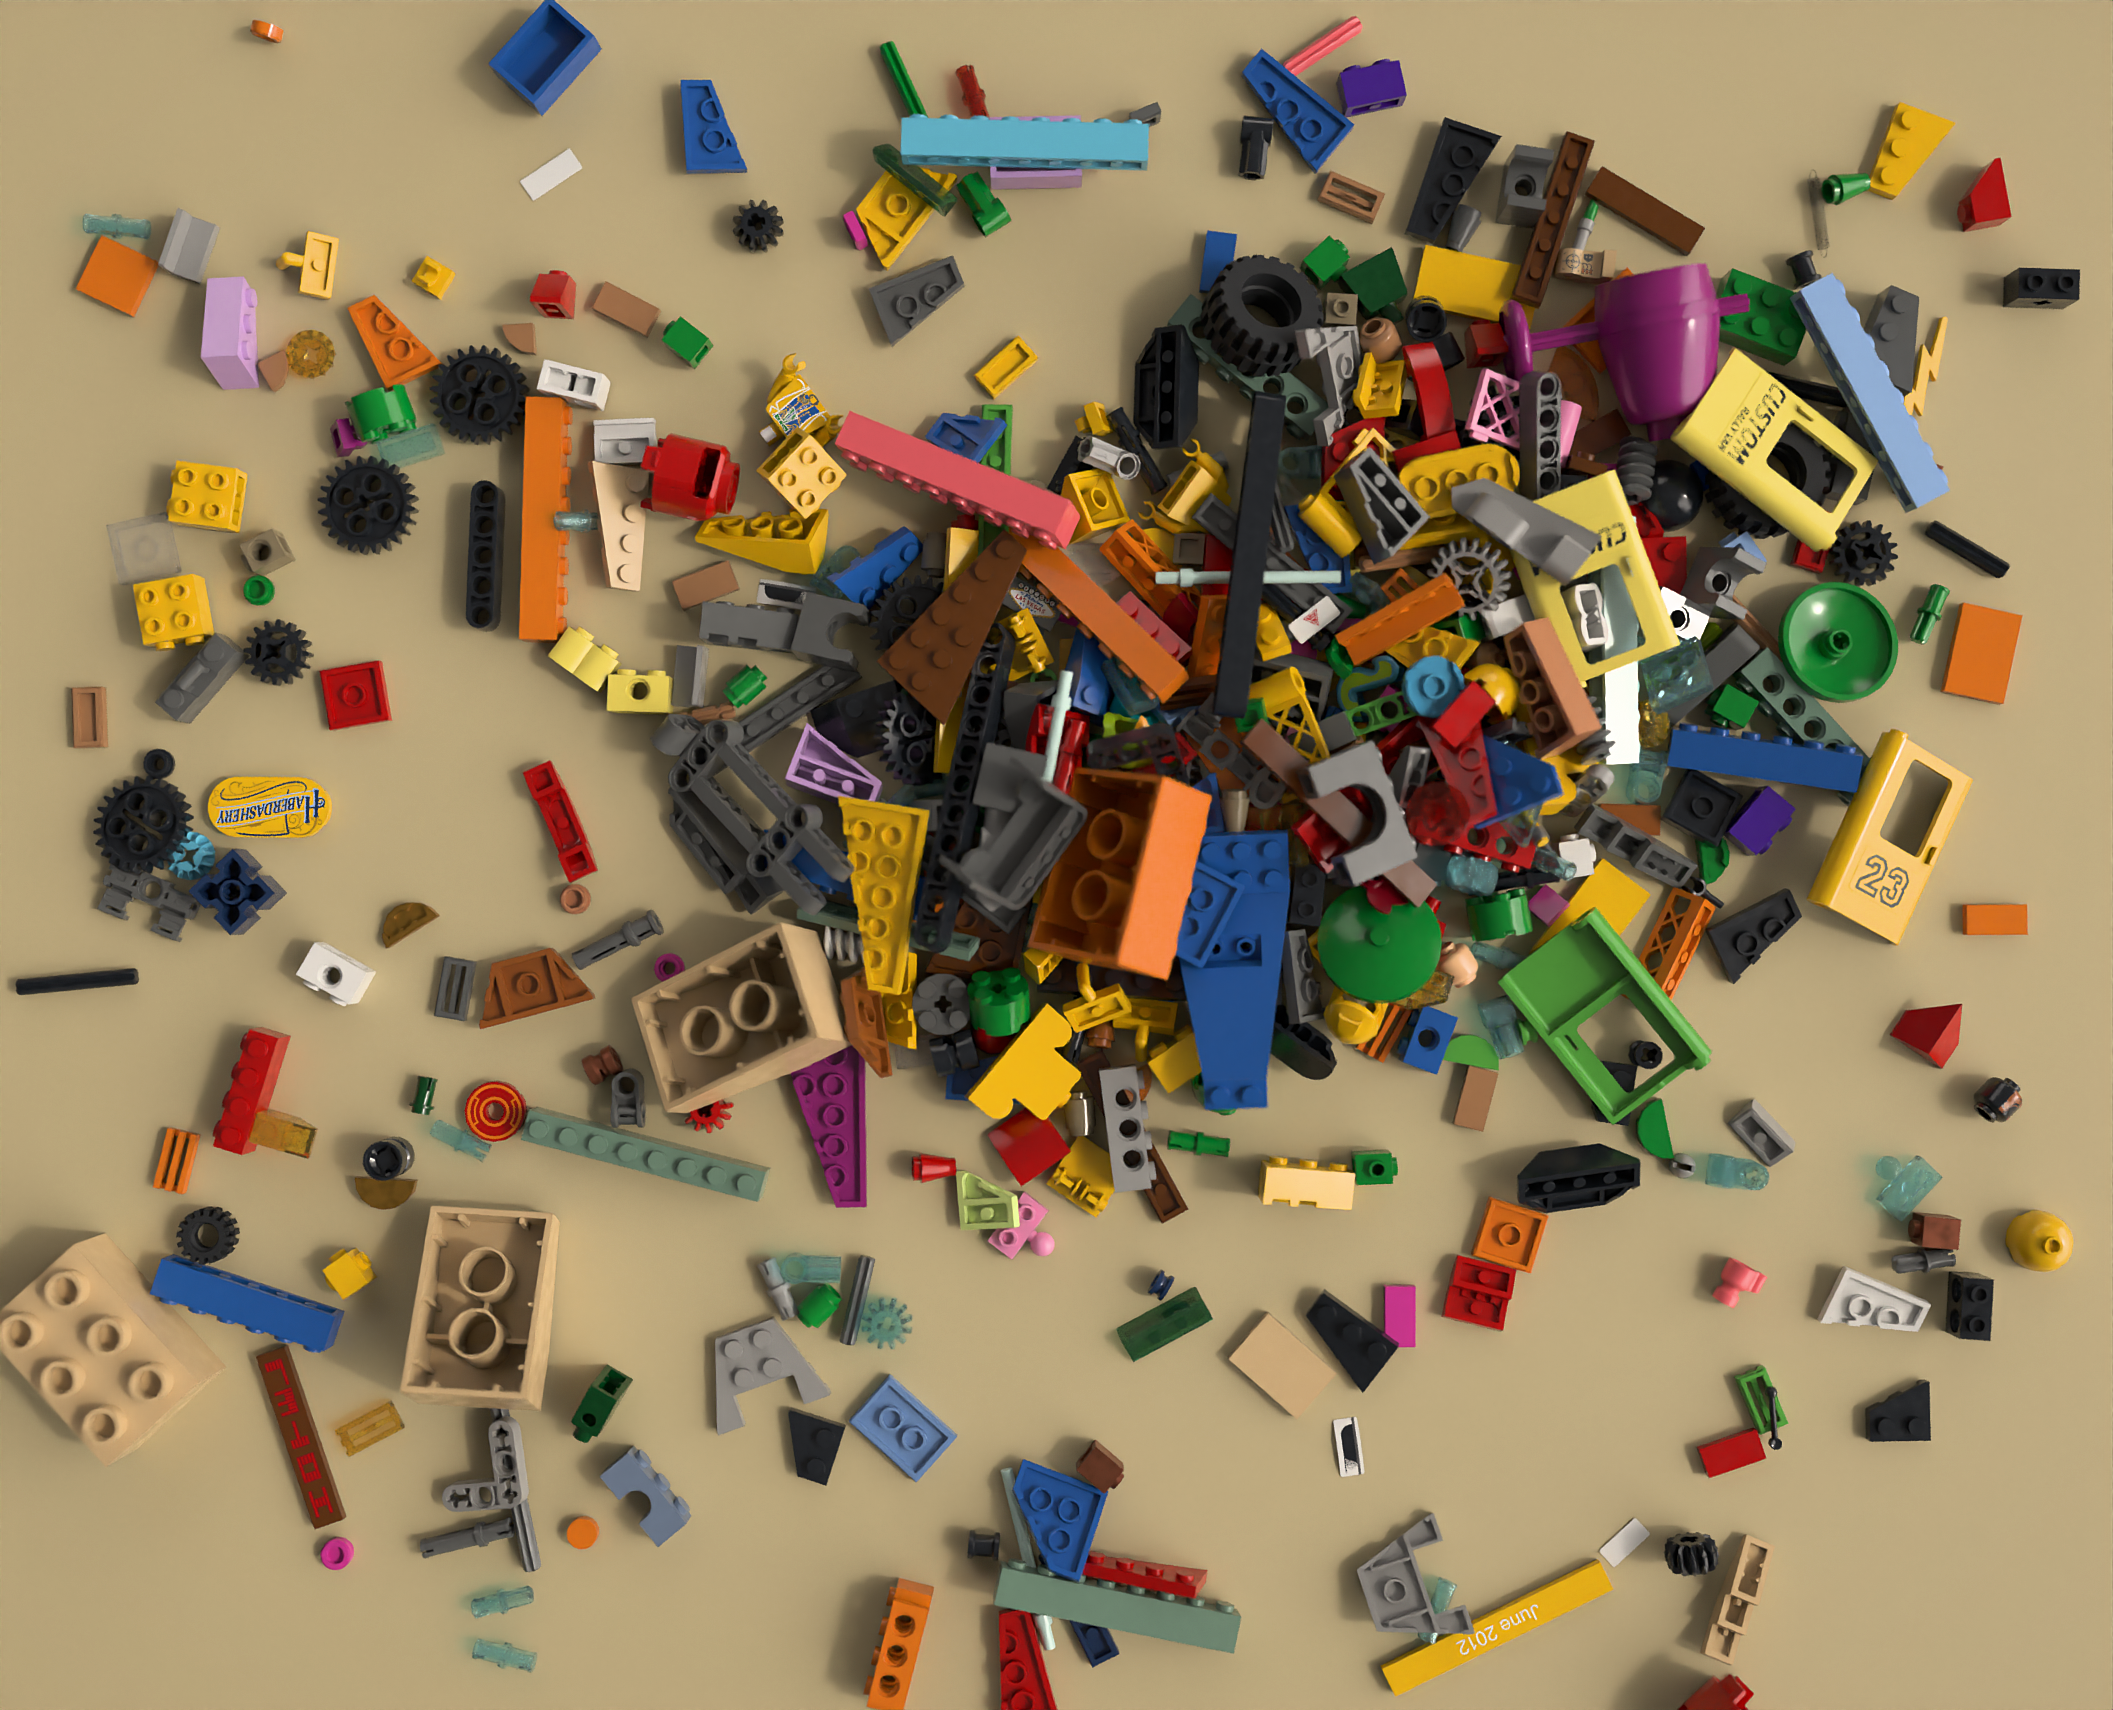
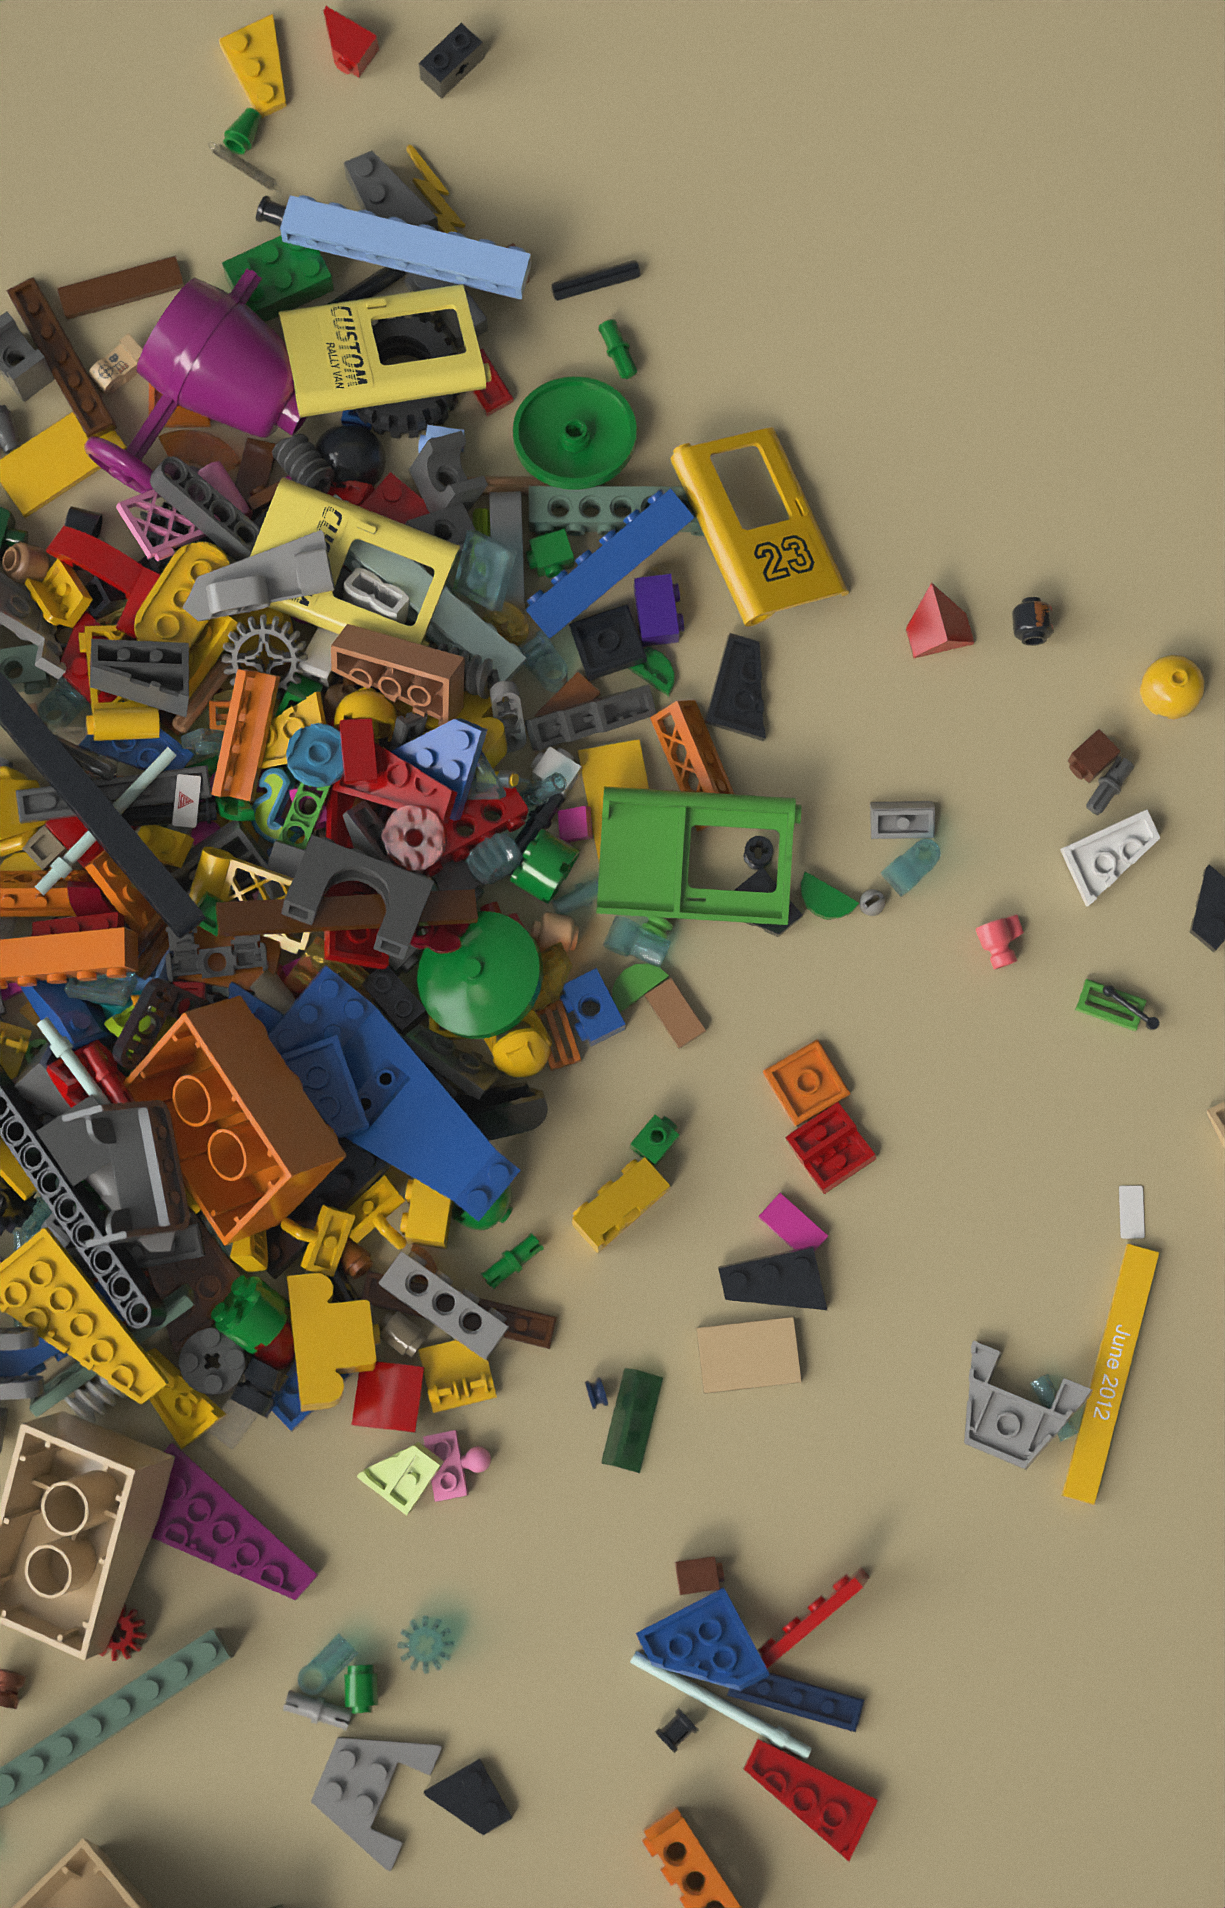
camera: 55 degrees left, 10 degrees down
(628, 1106) = (54, 1694): dark grey piece -> none
(857, 1300) = (386, 1653): dark grey axle -> none
(866, 1022) = (167, 1433): dark orange wing -> none
(903, 1428) = (523, 1711): medium blue tile -> none
(932, 1167) = (335, 1493): red cone -> none
(1117, 1606) = (819, 1664): sand green brick -> none
(1265, 790) = (280, 955): dark grey plate -> none
(1349, 1446) = (862, 1361): sticker -> none
(1425, 319) = (43, 515): black wheel -> none
(1484, 344) = (104, 490): red slope -> none
(1577, 1178) = (806, 990): black wedge -> none
(1585, 226) = (90, 338): light grey piece -> none
(1691, 1554) = (1181, 1165): black gear -> none
(1700, 890) = (669, 698): black hand -> none
(1731, 1452) = (1132, 1064): red tile -> none
(1876, 550) = (525, 345): black gear -> none
(1907, 1185) = (1042, 747): clear light blue plate -> none
(1969, 1306) = (1174, 781): black brick -> none
(1981, 653) = (684, 338): orange tile -> none
(1995, 919) = (895, 503): orange tile -> none

